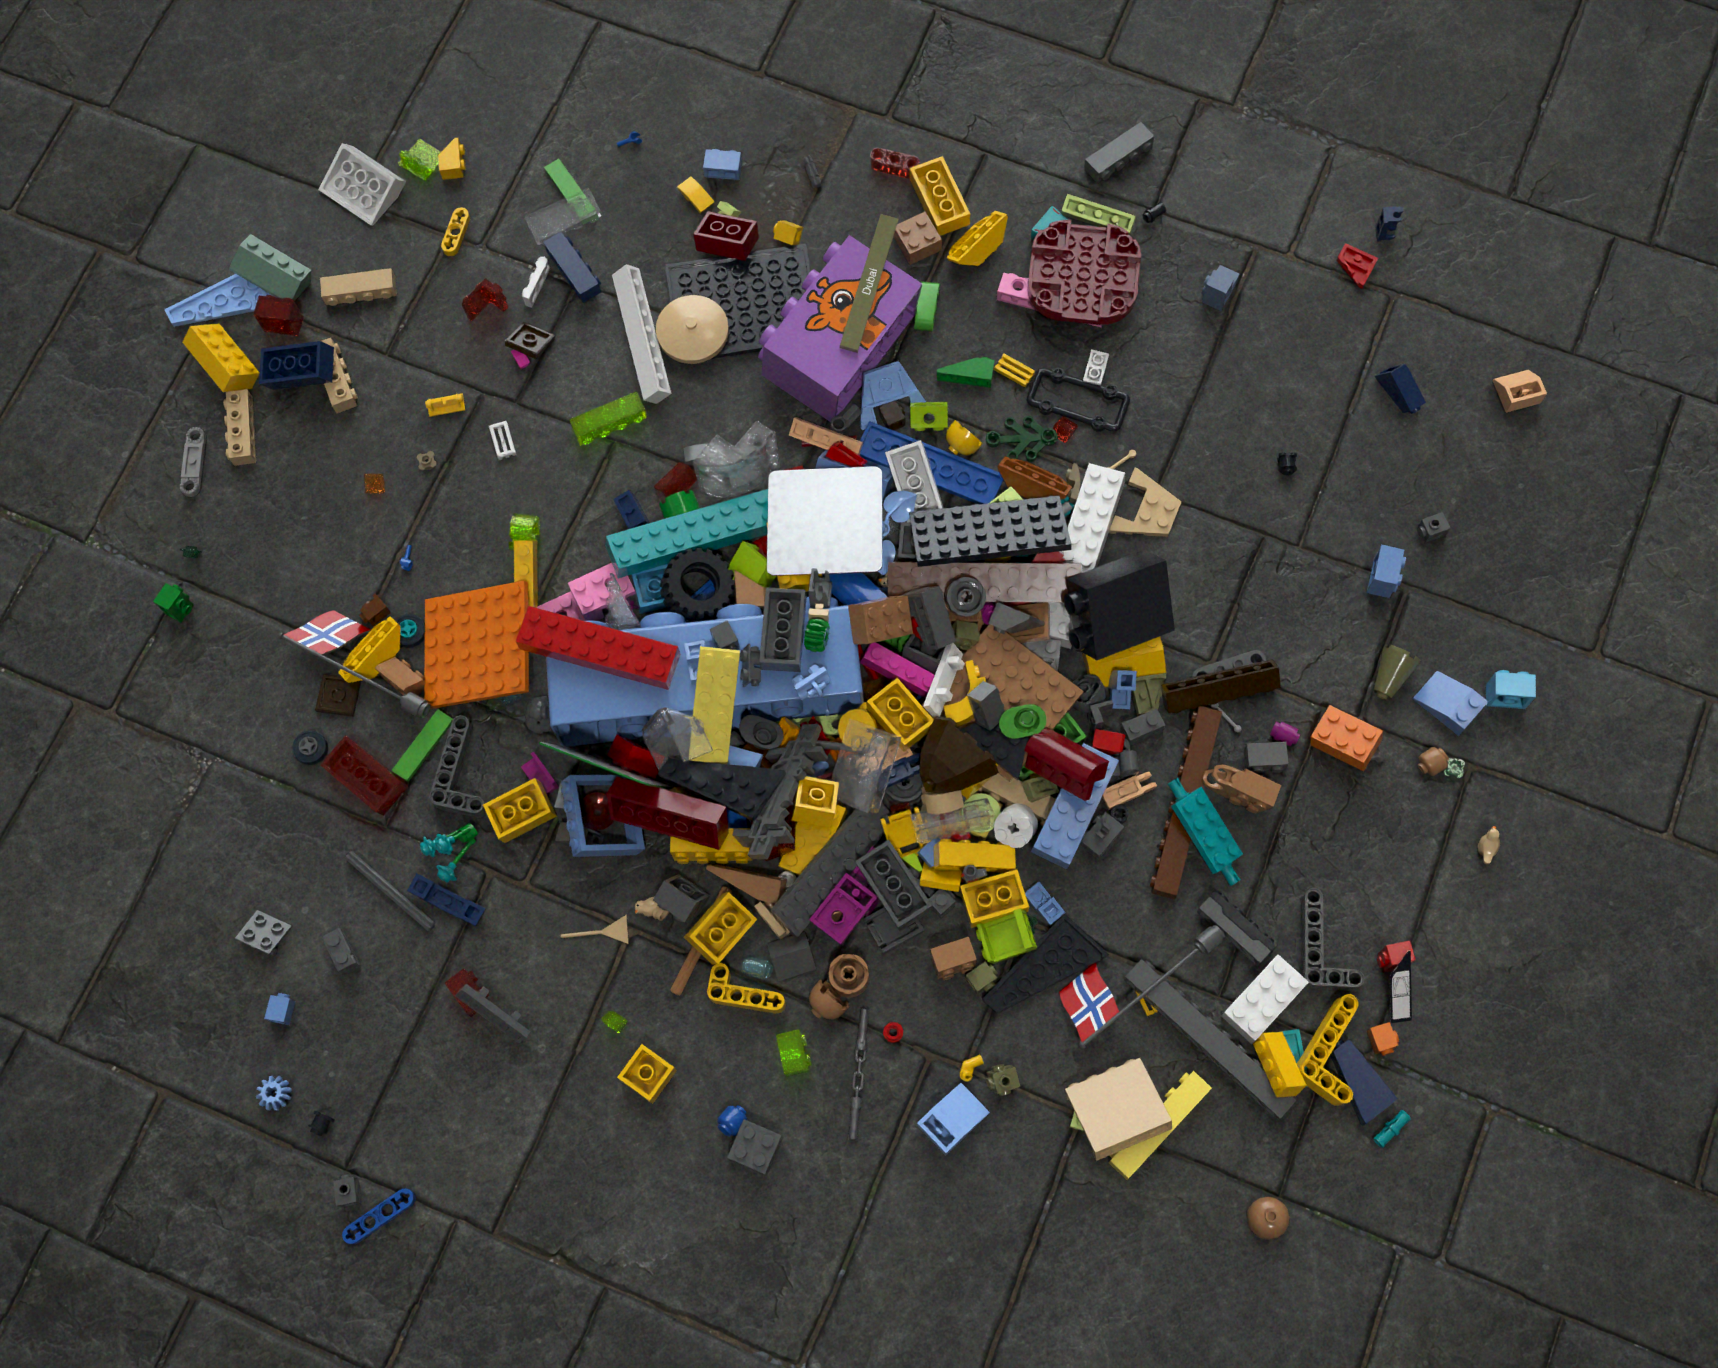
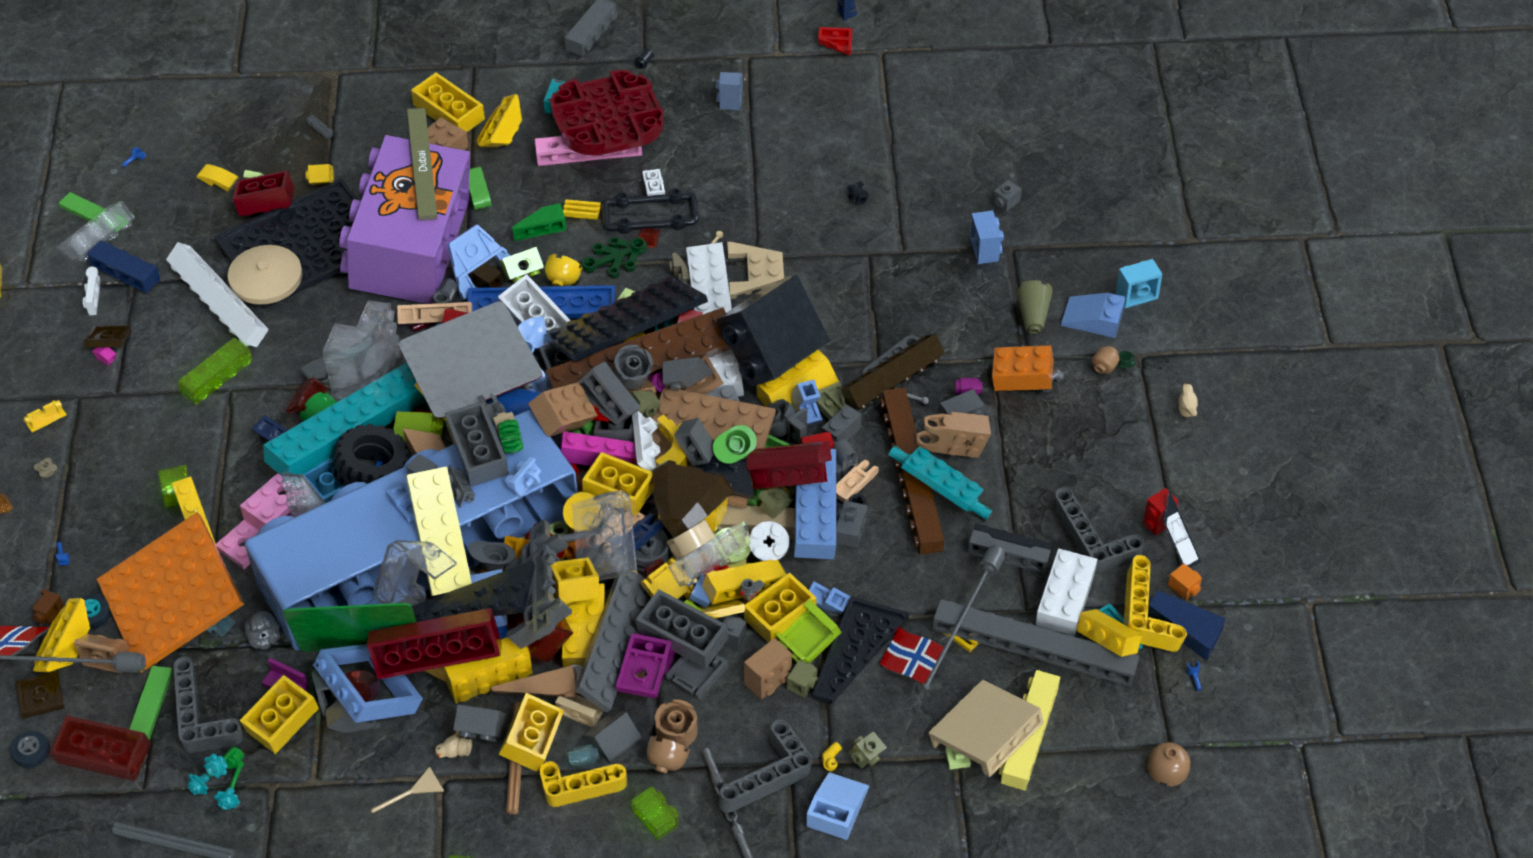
camera: 30 degrees left, 20 degrees down
(446, 900) = (237, 827): dark blue slope -> none
(481, 296) = (48, 311): clear red bracket -> none
(506, 453) = (123, 435): white tile -> none
(598, 647) = (301, 523): red brick -> none
(722, 164) = (232, 146): medium blue brick -> none
(888, 158) = (391, 95): clear red beam -> none
(893, 1025) = (745, 753): red plate -> none
(909, 1063) = (772, 773): none -> dark grey beam
(1032, 480) = (638, 279): dark orange wedge -> none
(1096, 214) = (592, 70): yellowish green brick -> none
(1341, 1136) = (1193, 672): none -> blue hand
(1391, 1128) = (1234, 649): teal pin -> none
(1401, 388) = (923, 108): dark blue slope -> none
(1520, 390) = (1022, 79): light nougat slope -> none

